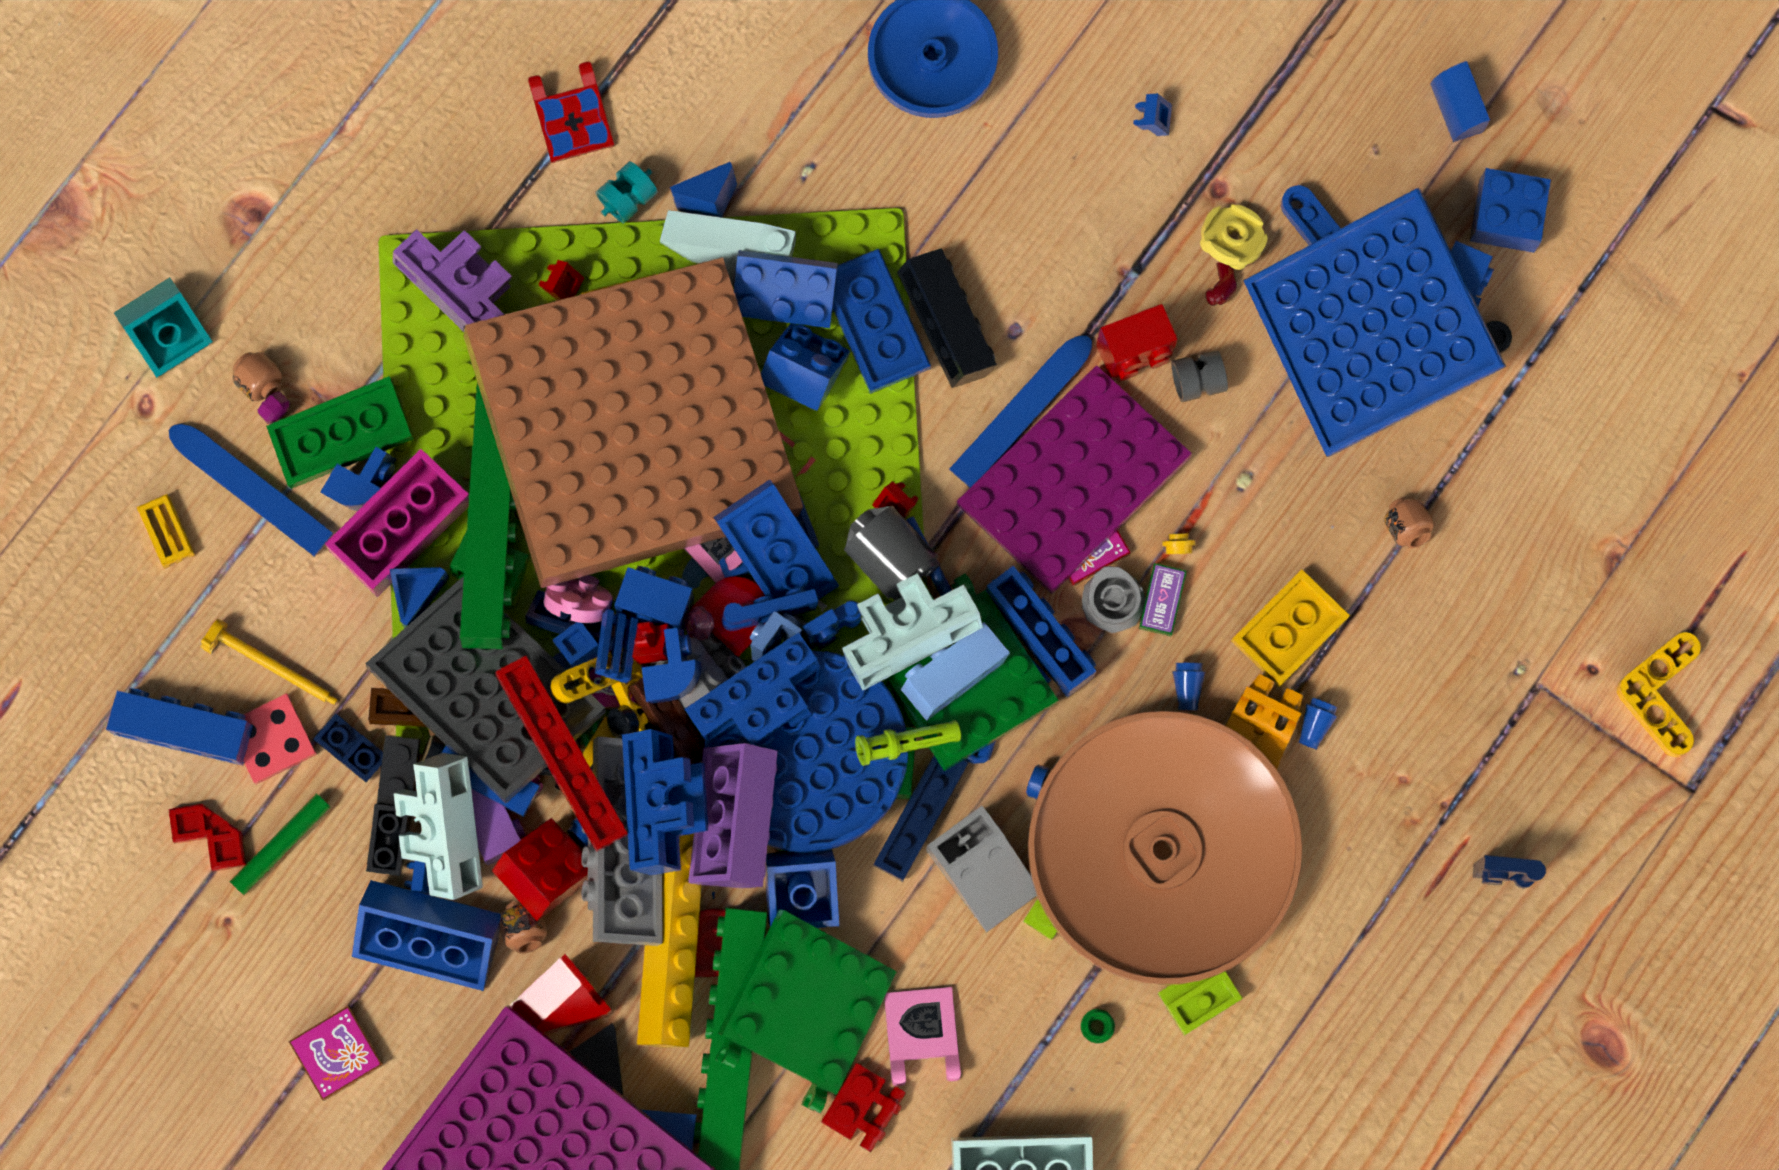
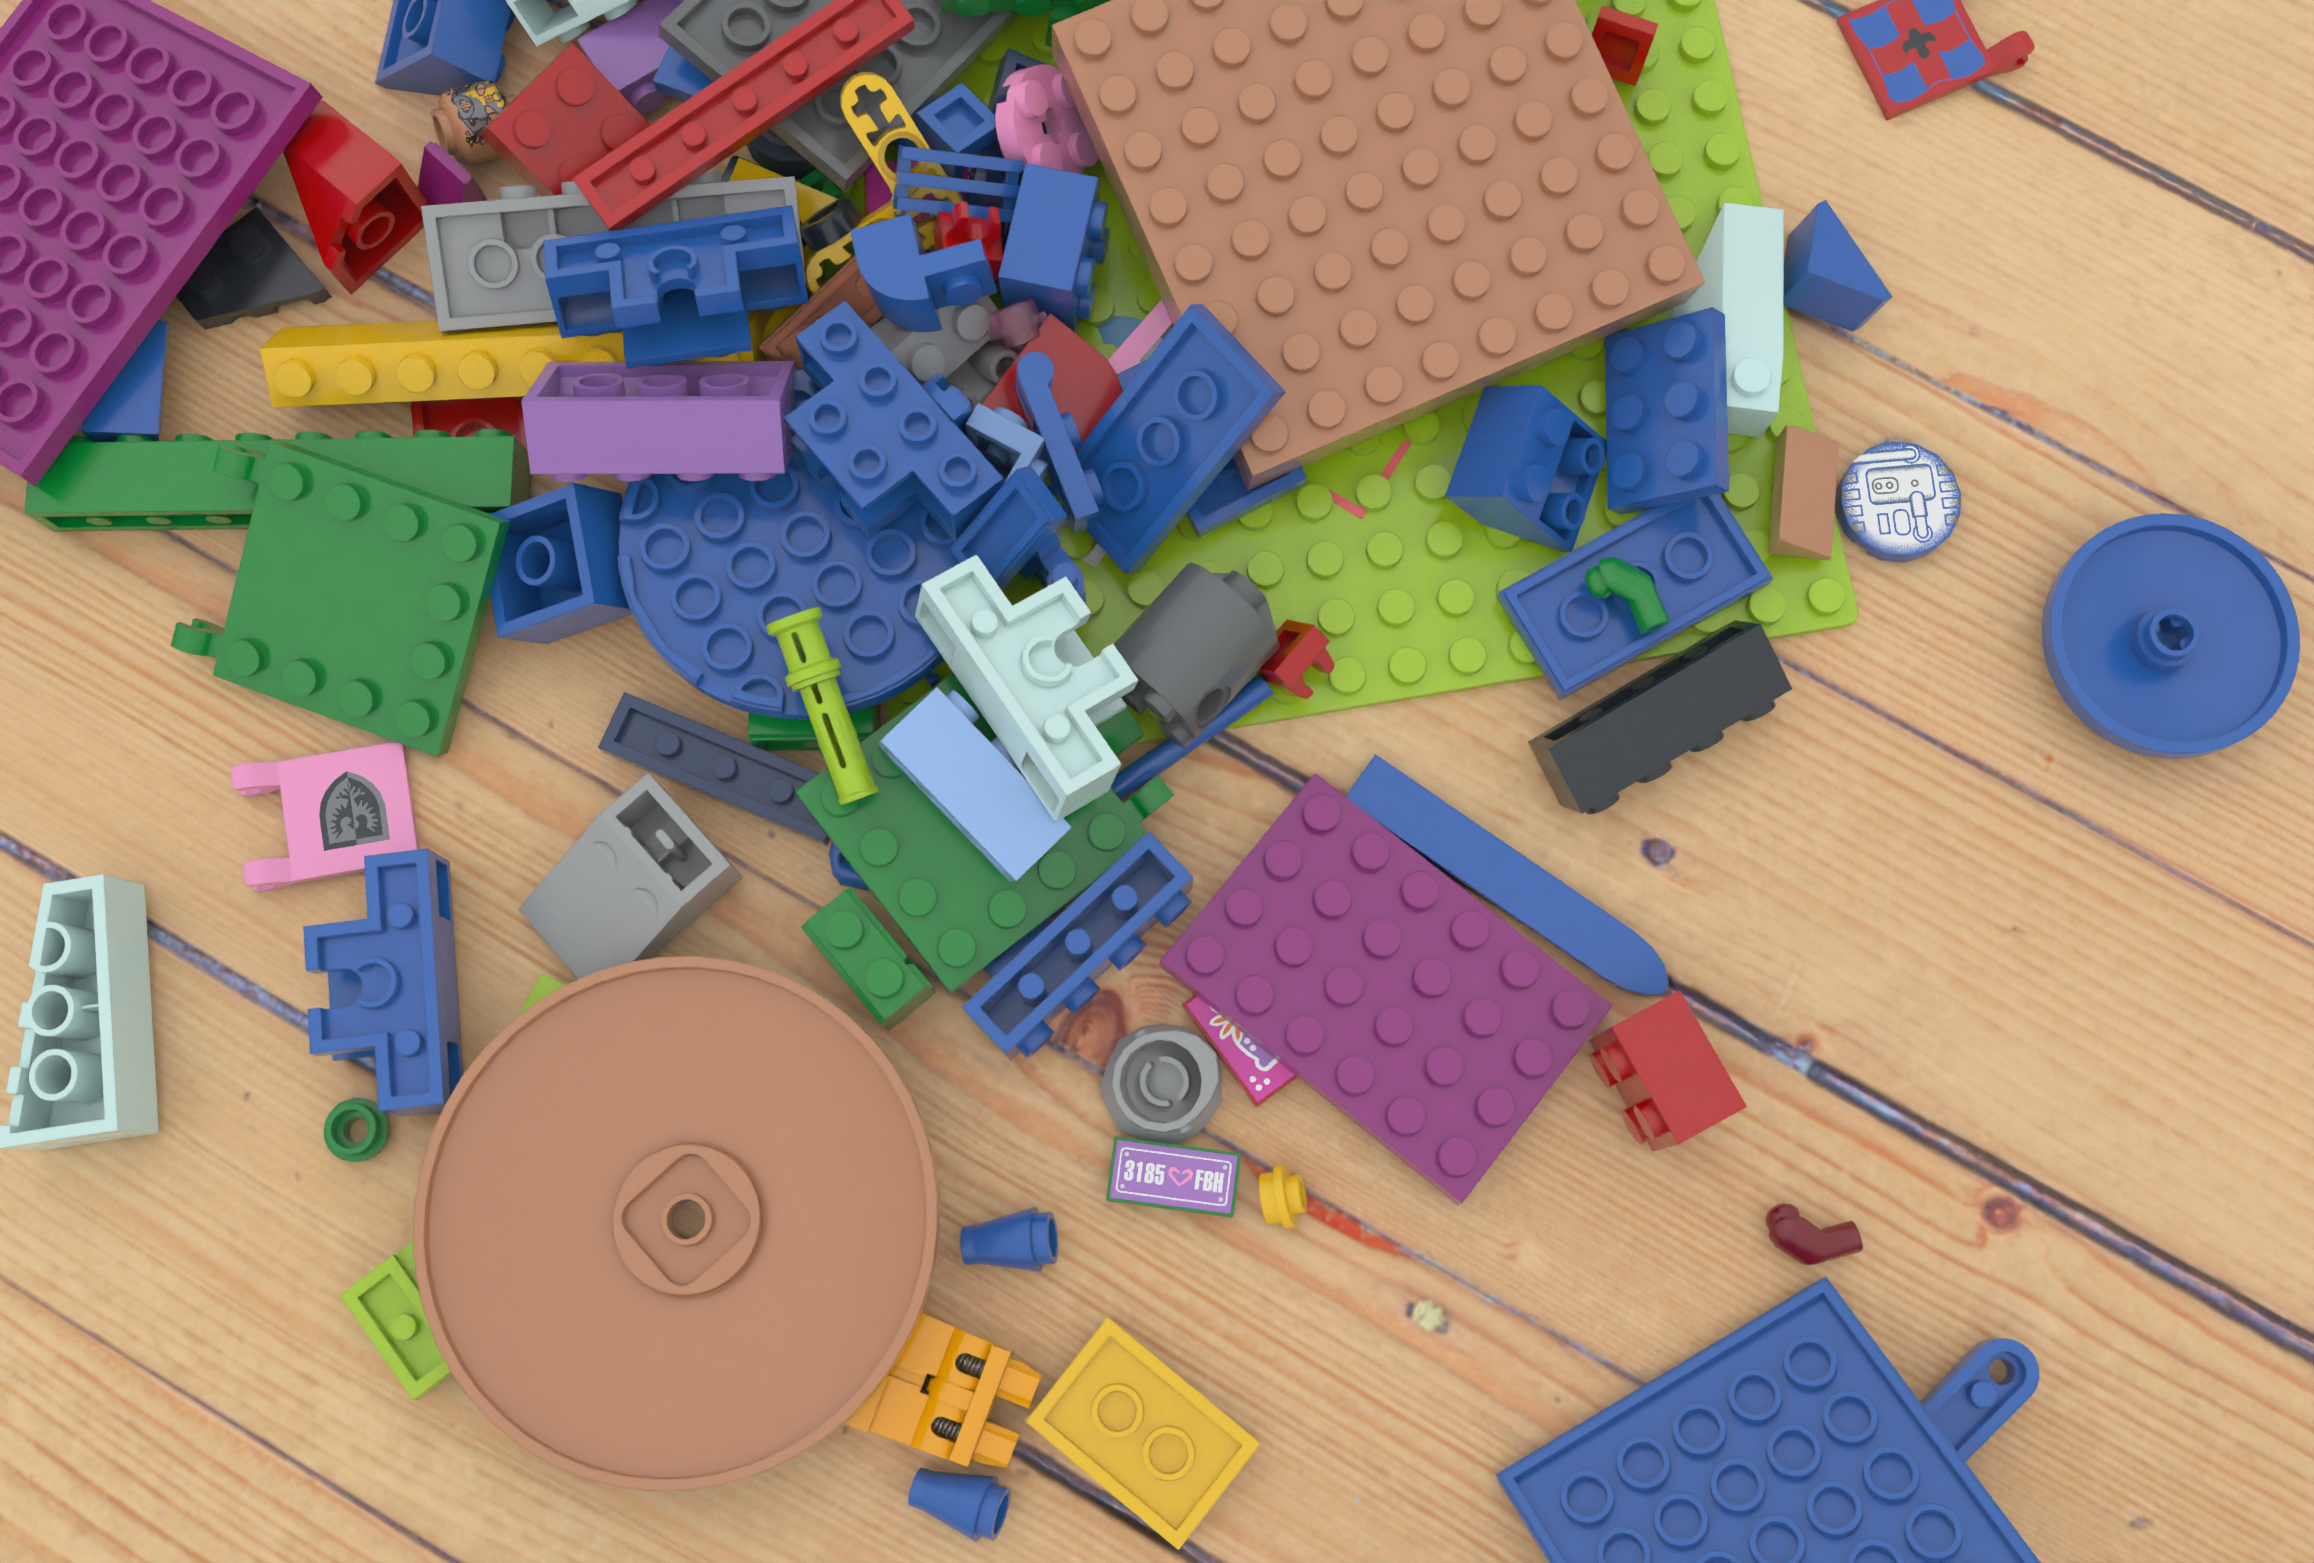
camera: 90 degrees right, 0 degrees up
(559, 944) = (445, 180): none -> magenta slope
(626, 192) = (1804, 136): teal wheel -> none
(749, 656) = (950, 400): none -> blue tile
(824, 633) = (1011, 526): none -> blue tile
(833, 225) = (1803, 494): none -> nougat slope
(838, 177) = (1898, 501): none -> tile
(853, 1103) = (203, 707): red plate -> none
(876, 322) = (1634, 586): none -> green arm
(1025, 997) = (394, 983): none -> blue piece
(1035, 743) = (868, 959): none -> green brick
(1037, 780) = (803, 970): blue tile -> none
(1156, 115) = (2129, 1072): blue tile -> none
(1200, 375) = (1619, 1205): dark grey wheel -> none
(1226, 249) = (1880, 1241): light yellow plate -> none

